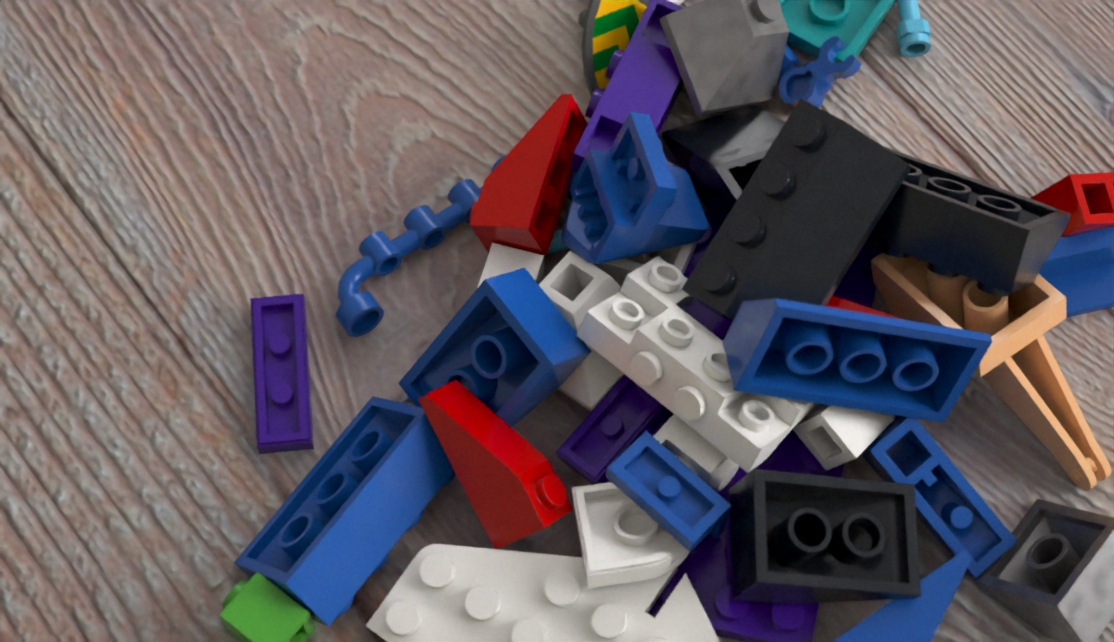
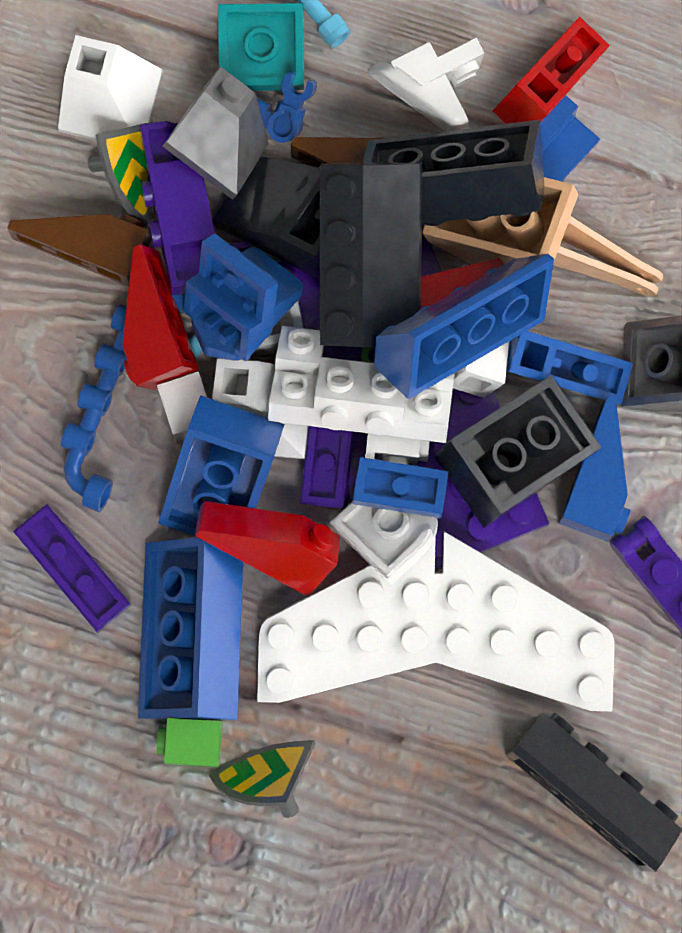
camera: 40 degrees left, 15 degrees up
(520, 71) = (89, 241): none -> reddish brown slope
(982, 124) = (425, 81): none -> white piece

